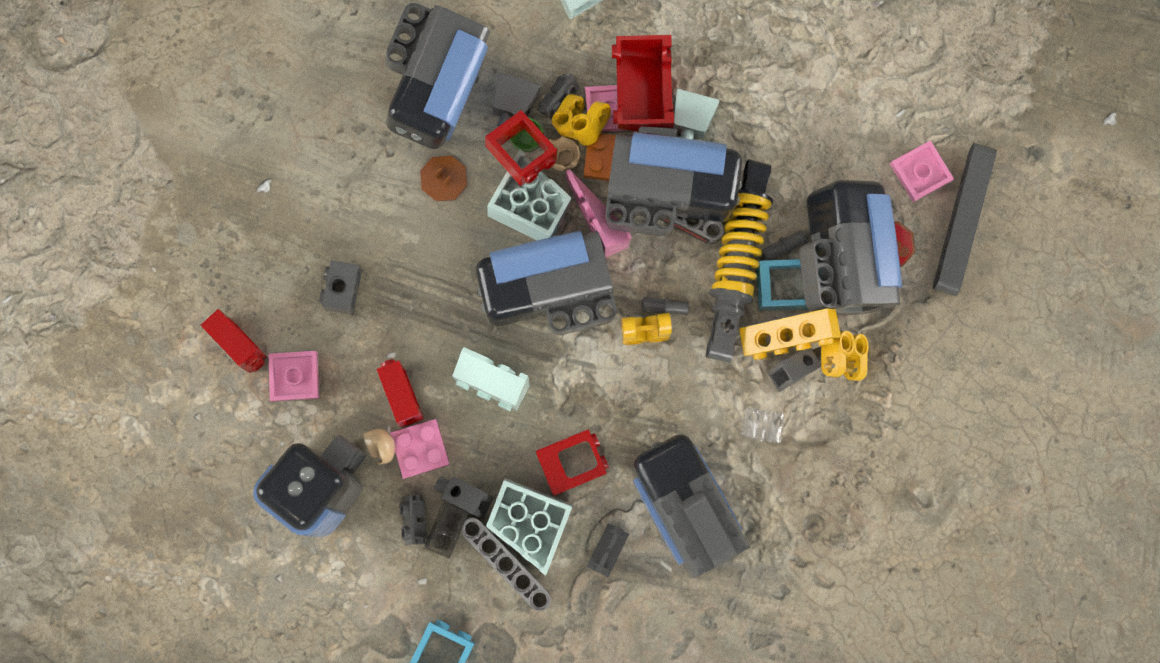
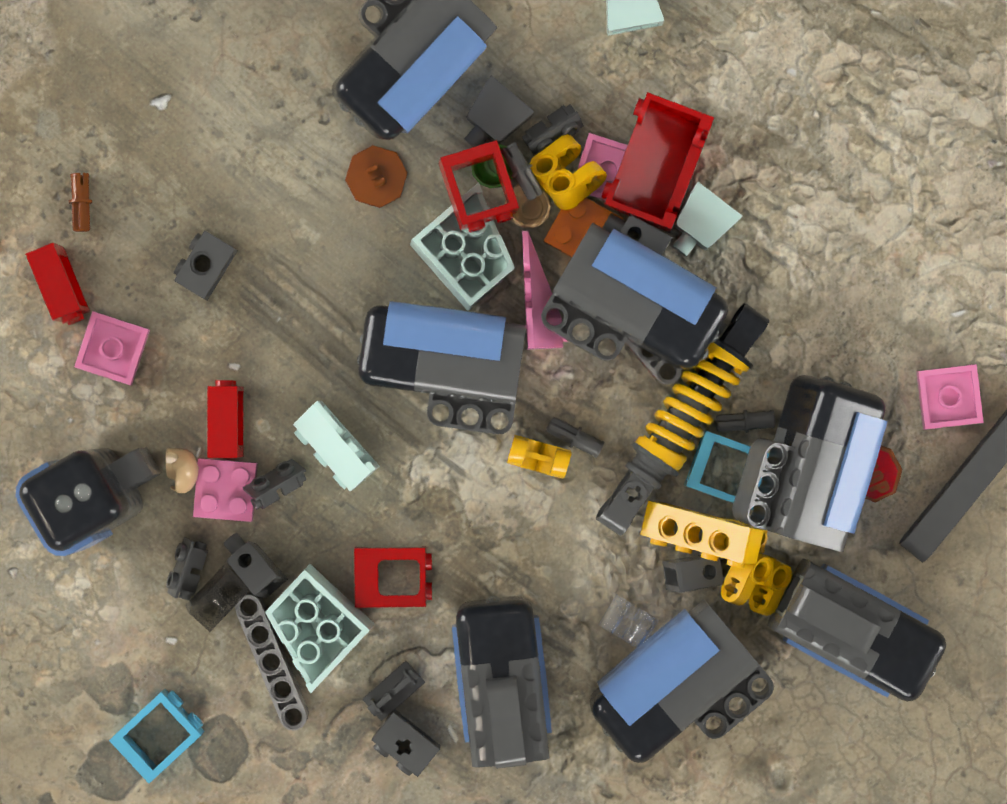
camera: 30 degrees right, 10 degrees up
(230, 278) = (80, 202): none -> dark orange axle
(462, 419) = (286, 476): none -> dark grey hinge
(549, 129) = (521, 171): none -> dark grey axle
(648, 586) = (400, 728): none -> dark grey brick
(820, 450) = (678, 679): none -> piece
(935, 361) = (858, 631): none -> piece

